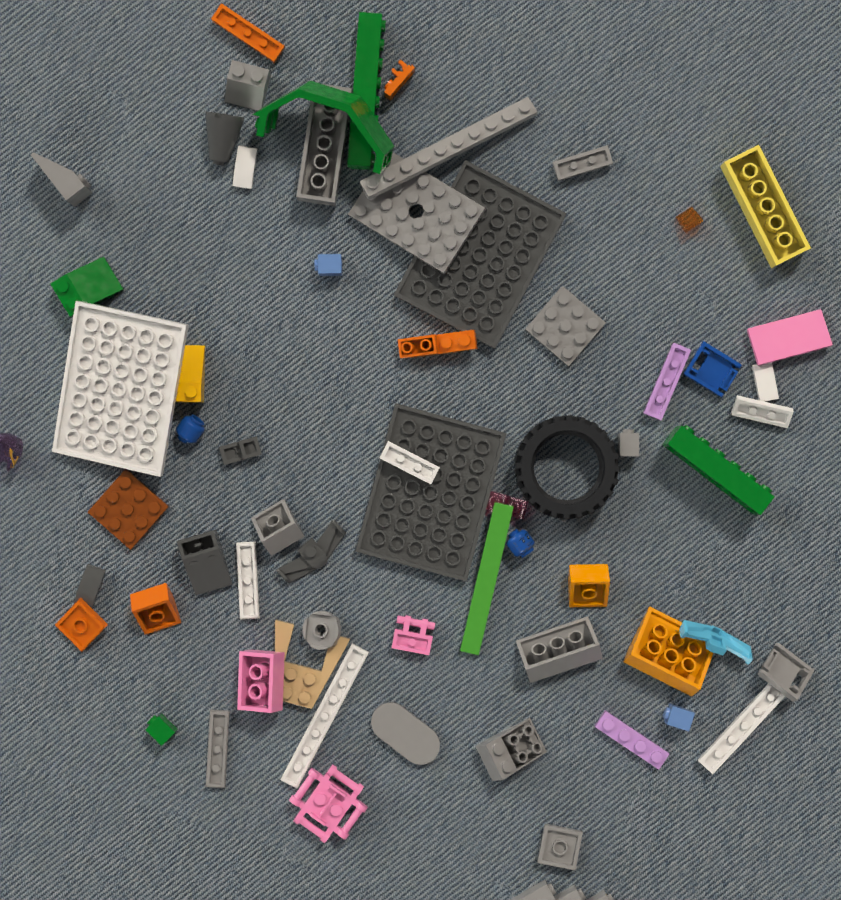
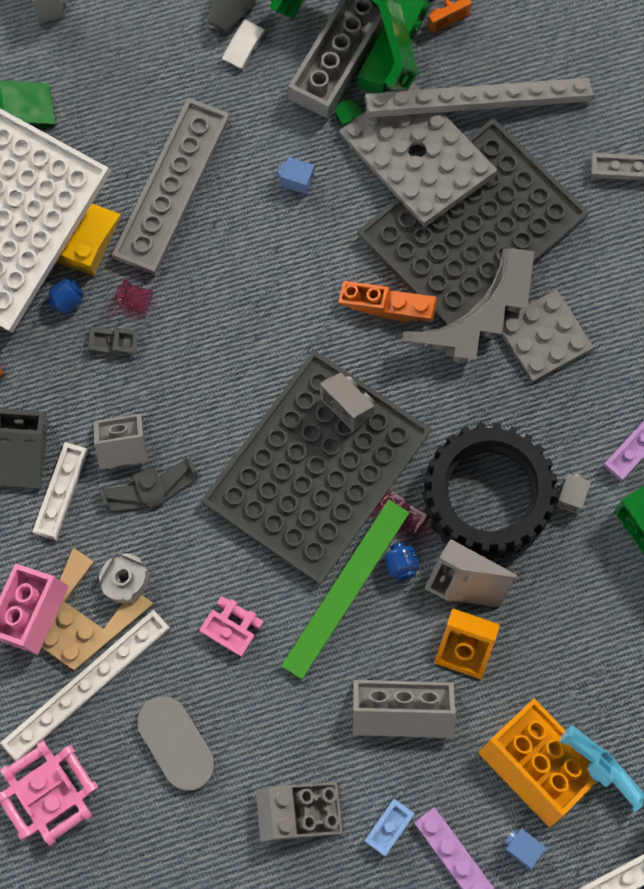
camera: 20 degrees right, 15 degrees down
(235, 308) = (171, 186): none -> light grey plate
(242, 410) = (133, 297): none -> clear pink bracket
(349, 195) = (347, 112): none -> green tile
(409, 462) = (304, 419): white plate -> none
(436, 437) = (346, 400): none -> light grey slope
(526, 306) = (506, 293): none -> light grey arch
(572, 539) = (469, 577): none -> light grey slope
(579, 737) = (389, 827): none -> light blue plate

